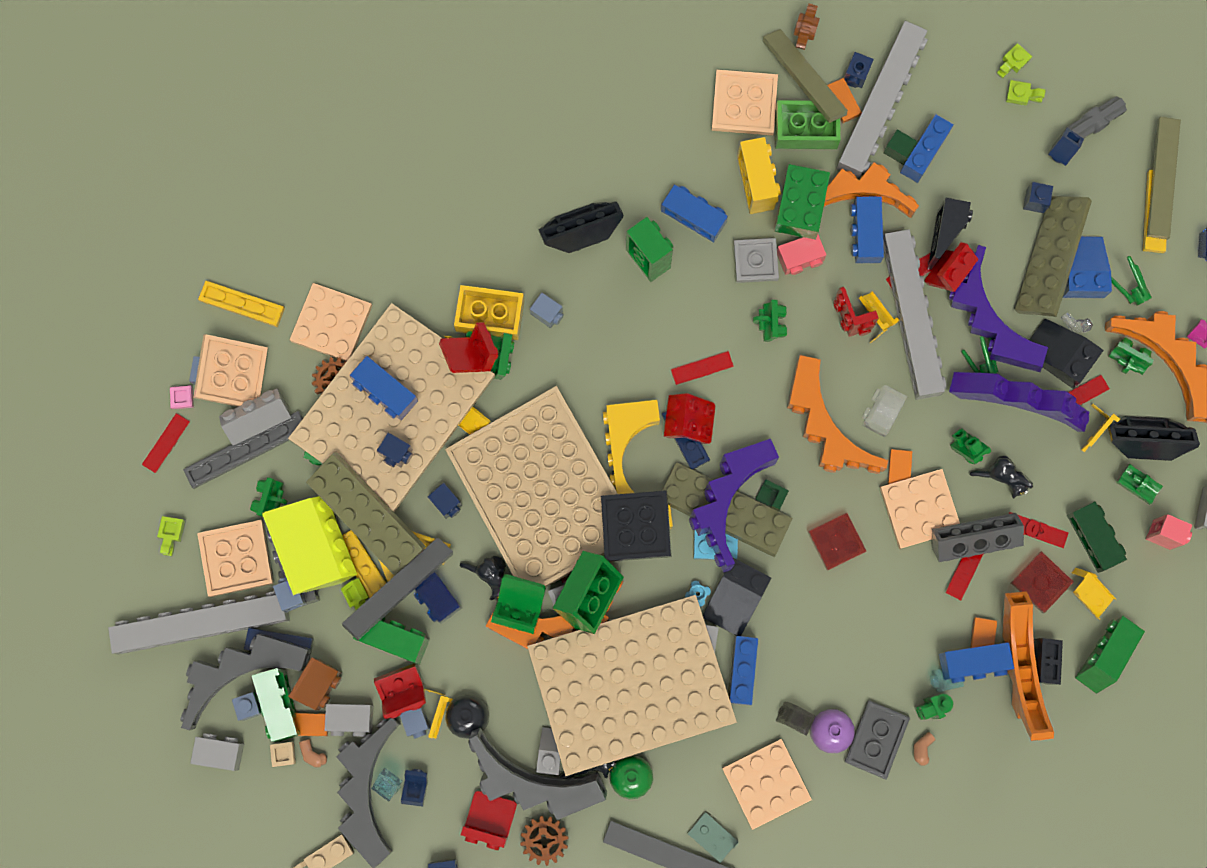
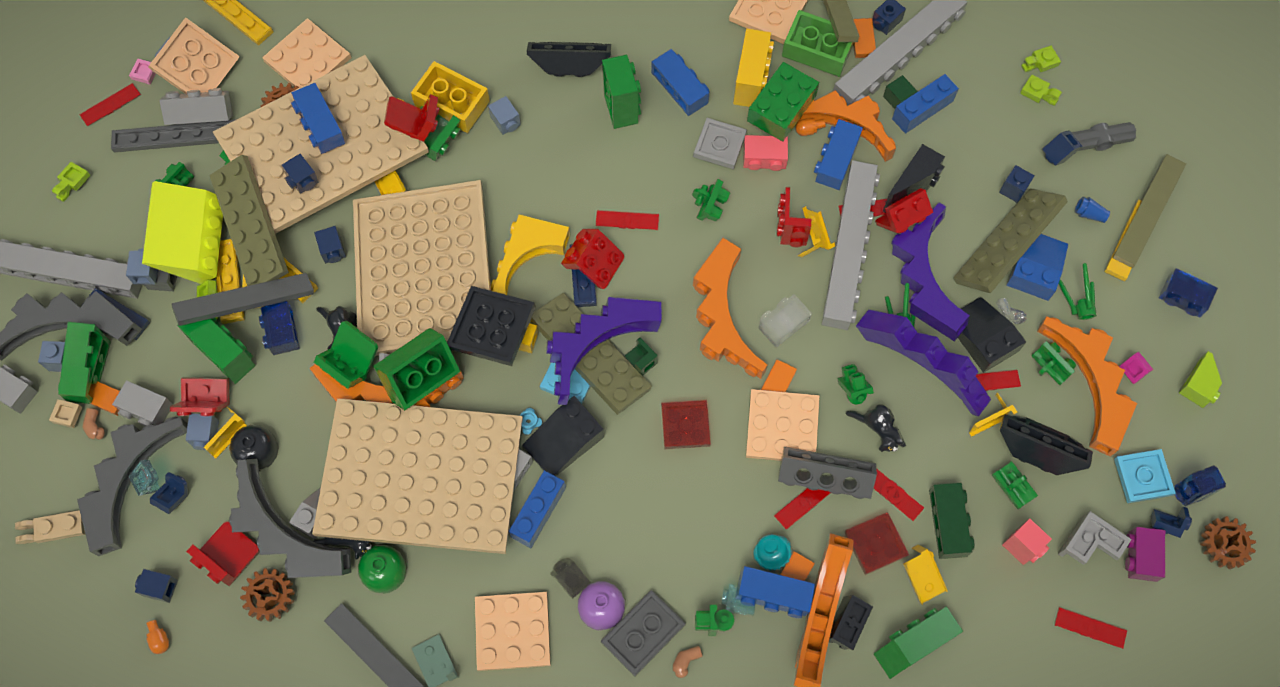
camera: 20 degrees right, 10 degrees down
(235, 558) = (113, 223): light nougat plate -> none
(316, 684) = (126, 358): dark orange slope -> none
(831, 210) = (809, 126): none -> orange cylinder
(959, 626) = (772, 552): none -> teal hair
(1111, 196) = (1091, 210): none -> blue cone

